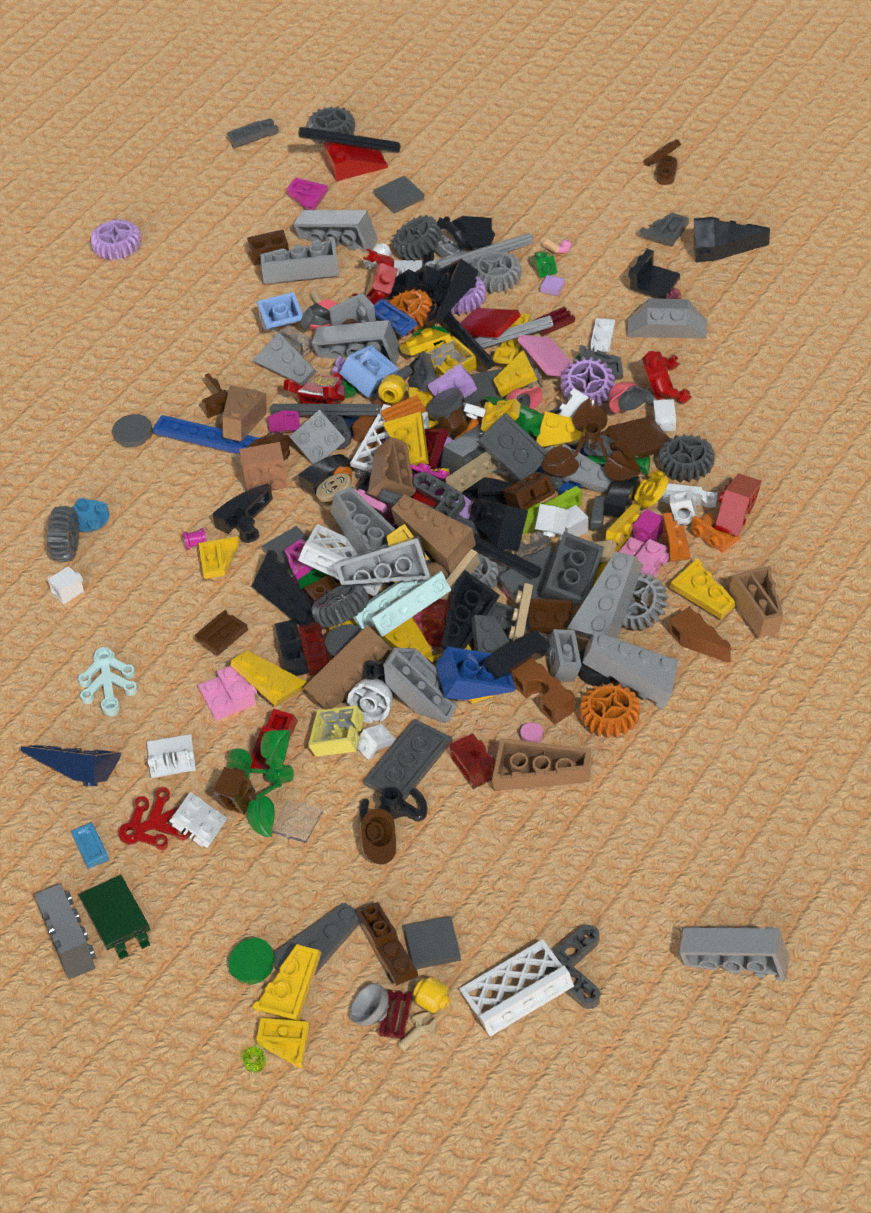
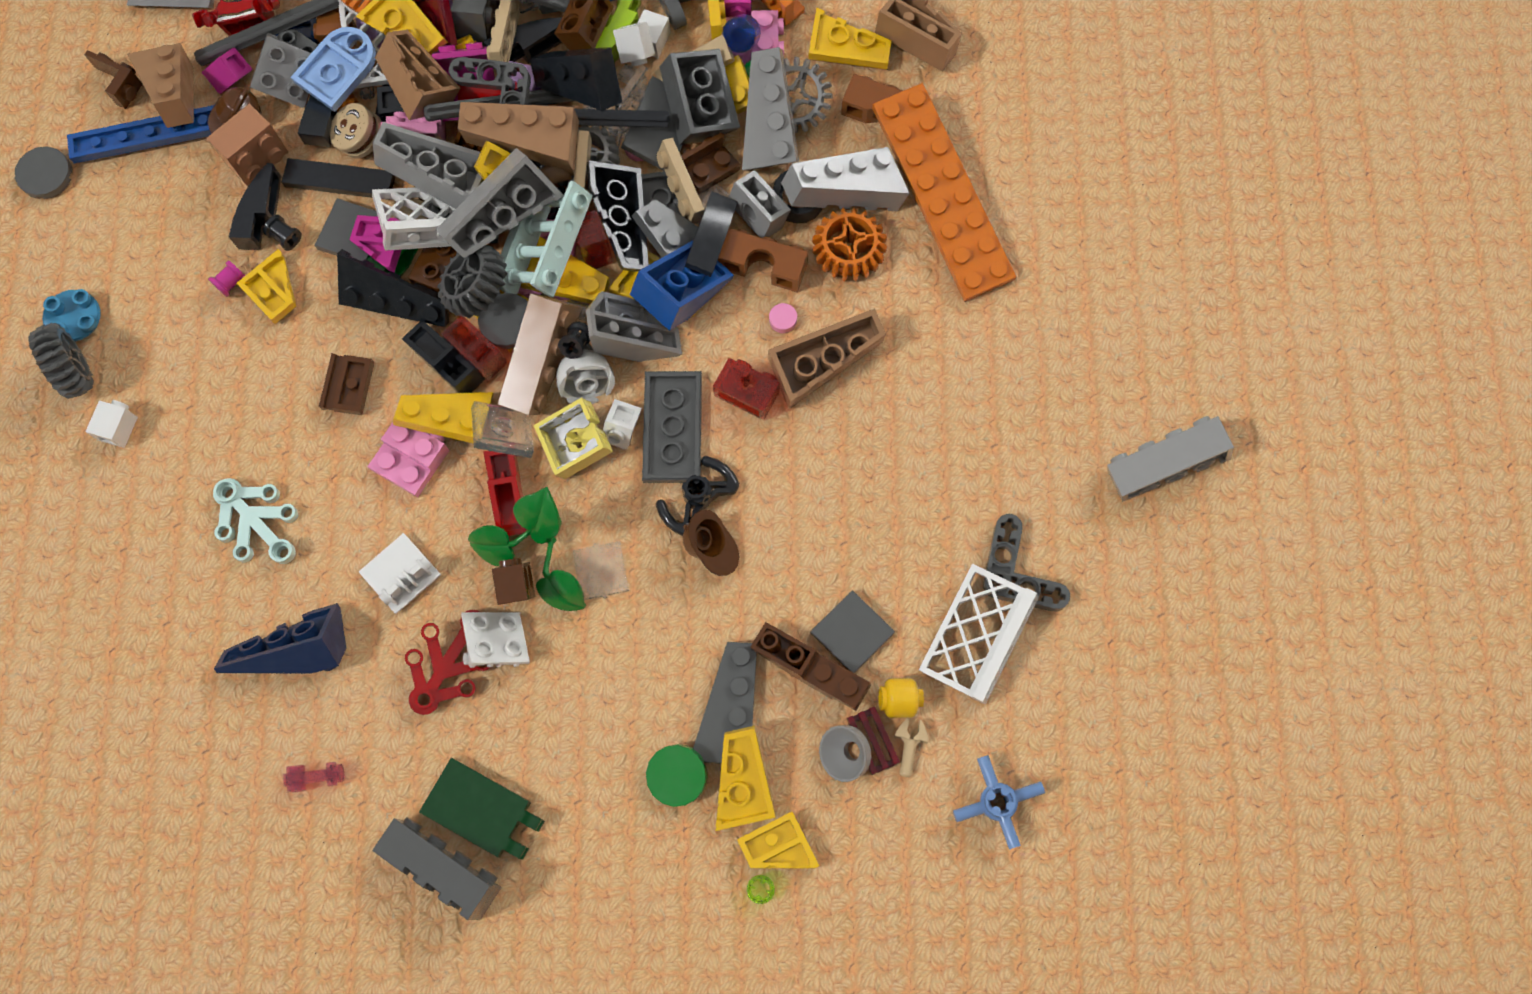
camera: 35 degrees left, 25 degrees up
(23, 835) = (297, 777): none -> clear pink bar
(90, 845) = (385, 740): dark azure tile -> none
(295, 701) = (501, 430): none -> clear tile
(302, 512) = (335, 178): none -> black tile
(349, 447) = (335, 68): none -> light blue tile
(457, 1093) = (1011, 799): none -> medium blue bar
(627, 543) = (741, 33): none -> clear blue head
(699, 709) = (943, 192): none -> orange plate

